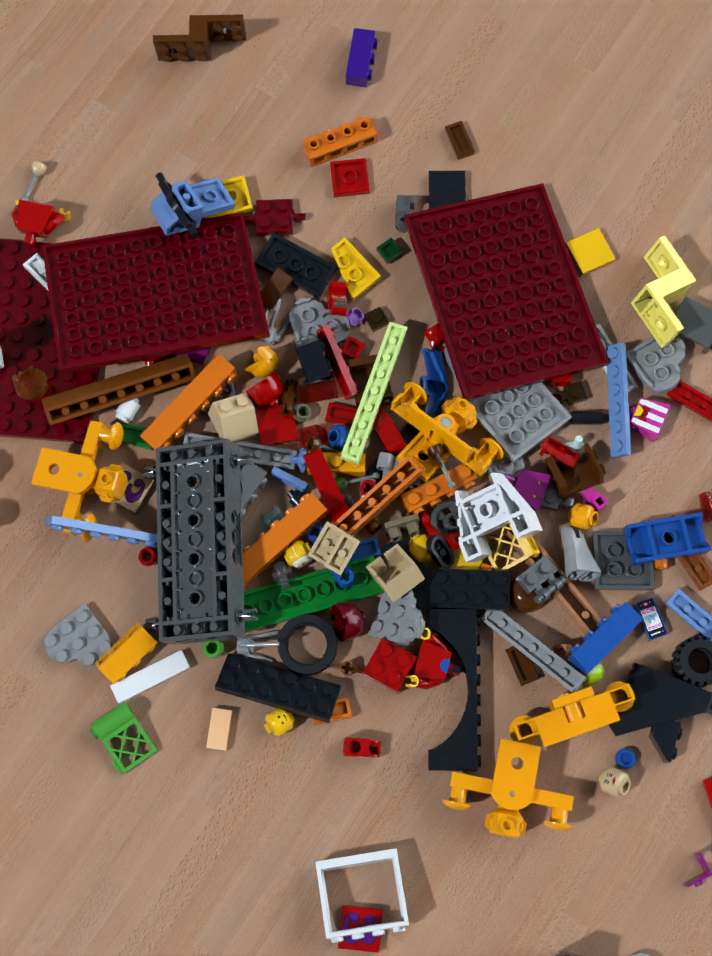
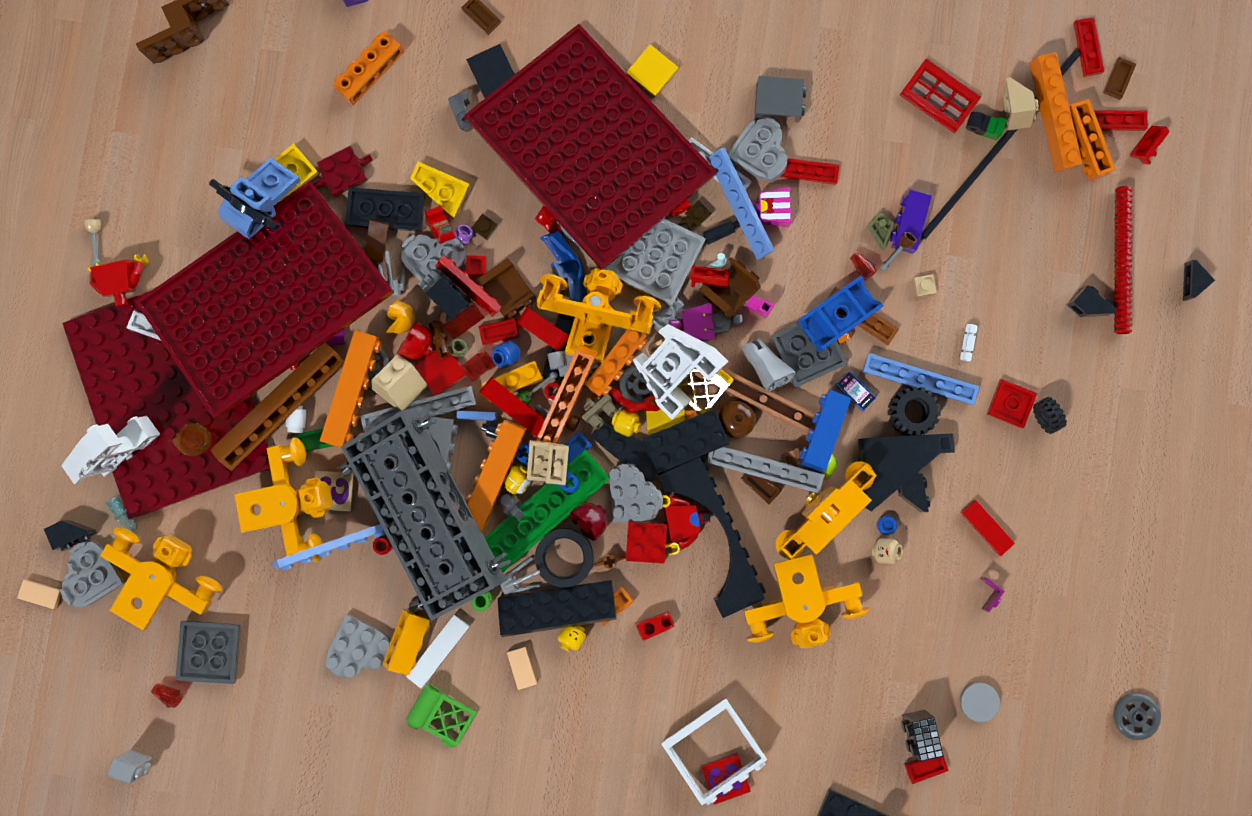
camera: 25 degrees left, 10 degrees up
(274, 514) = (477, 456): clear light blue bush -> none
(299, 460) = (476, 394): medium blue plant -> none
(315, 443) = (484, 373): reddish brown hinge -> none
(349, 177) = (394, 99): red tile -> none
(373, 393) = (516, 300): yellowish green tile -> none
(389, 250) = (465, 155): dark green plate -> none
(400, 578) = (619, 462): tan piece -> none
(436, 452) = (599, 331): hinge -> none
(440, 551) = (644, 419): black plate -> none
(536, 575) = (739, 403): dark grey plate -> none
(583, 516) = (756, 326): light orange head -> none
(654, 298) = (742, 68): light yellow bracket -> none

